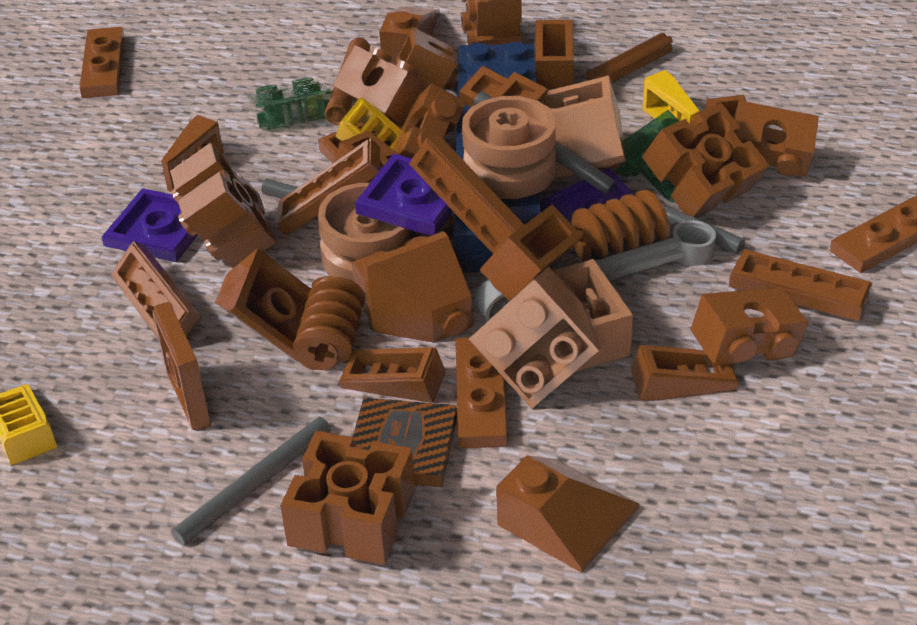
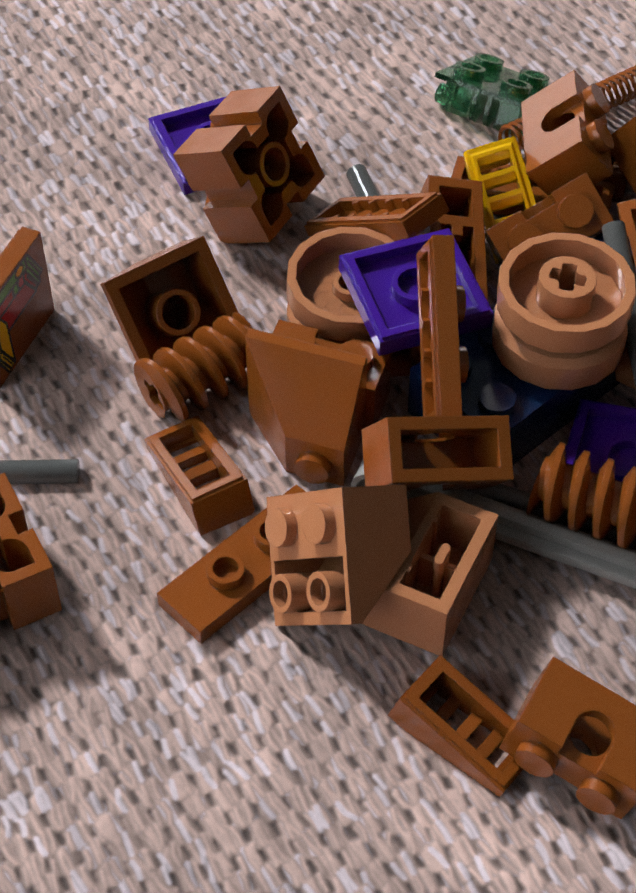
camera: 45 degrees right, 10 degrees up
(149, 285) = (106, 216): dark orange plate -> none
(194, 137) = (348, 69): dark orange slope -> none
(416, 425) = (114, 551): tile -> none
(561, 510) = (147, 757): dark orange slope -> none

